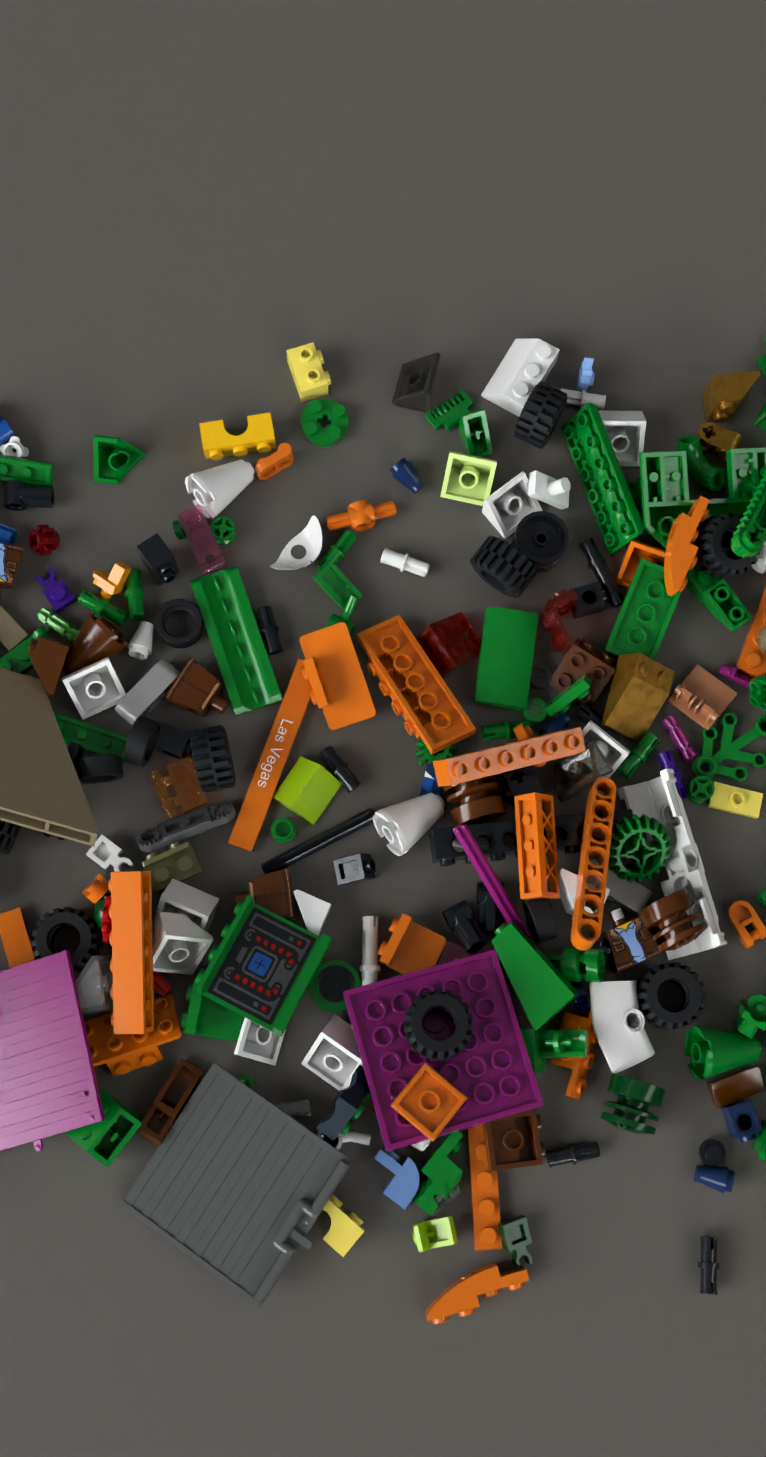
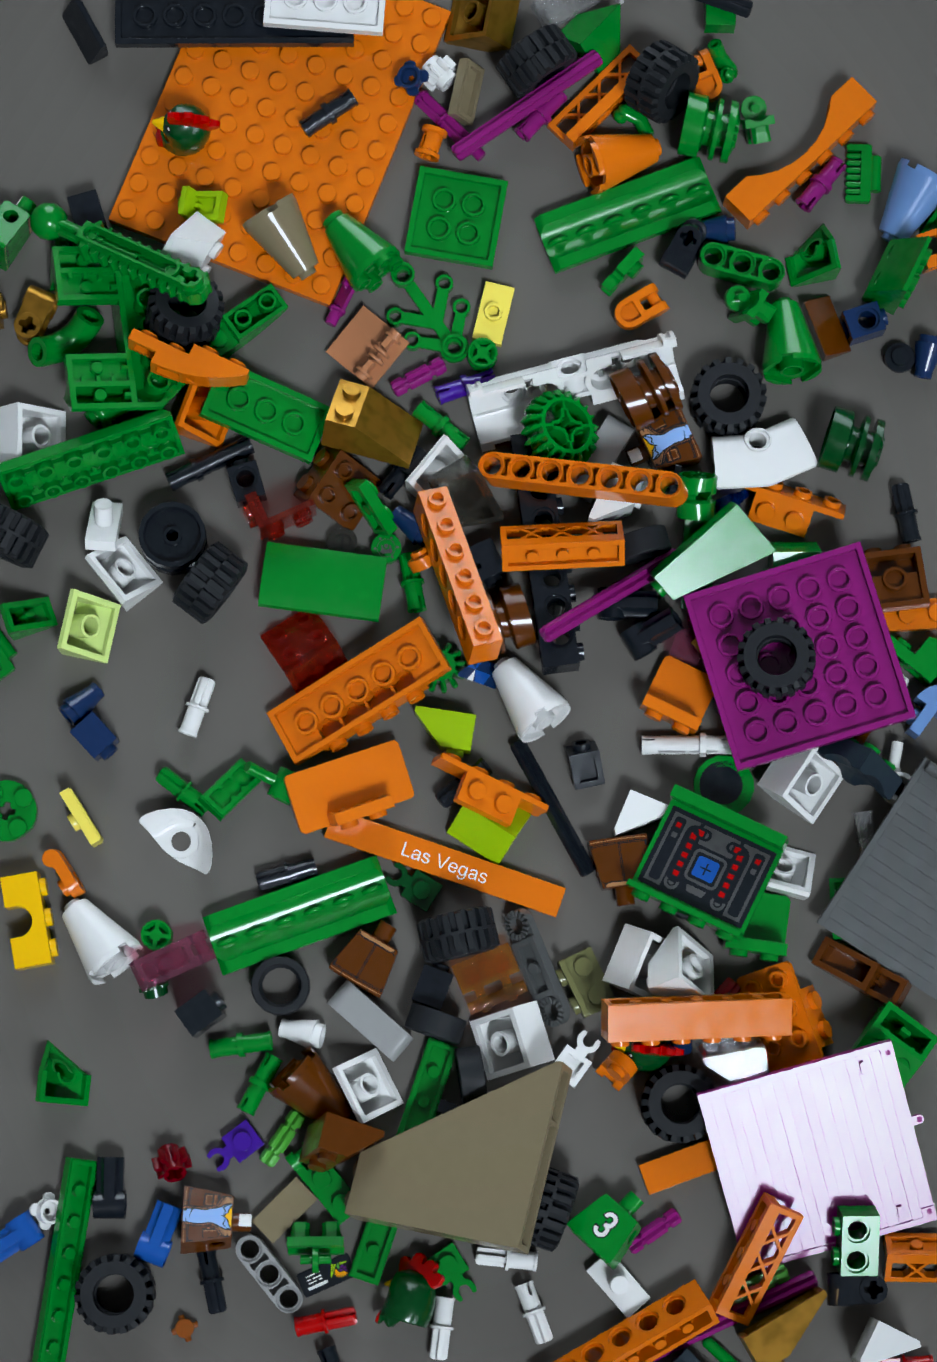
camera: 90 degrees left, 5 degrees up
(112, 582) = (228, 1074): light orange piece -> none
(127, 805) = (512, 1040): none -> white slope
(255, 733) = (418, 889): none -> dark green plate
(283, 830) = (539, 851): green plate -> none
(317, 474) = (79, 817): none -> light yellow plate
(326, 784) = (487, 795): none -> orange bracket
(361, 515) = (136, 761): orange axle -> none
(380, 485) = (95, 737): none -> dark blue brick
(383, 757) = (448, 729): none -> lime slope
(429, 1102) = (861, 669): orange tile -> none
(563, 1043) = (788, 520): green hips -> none

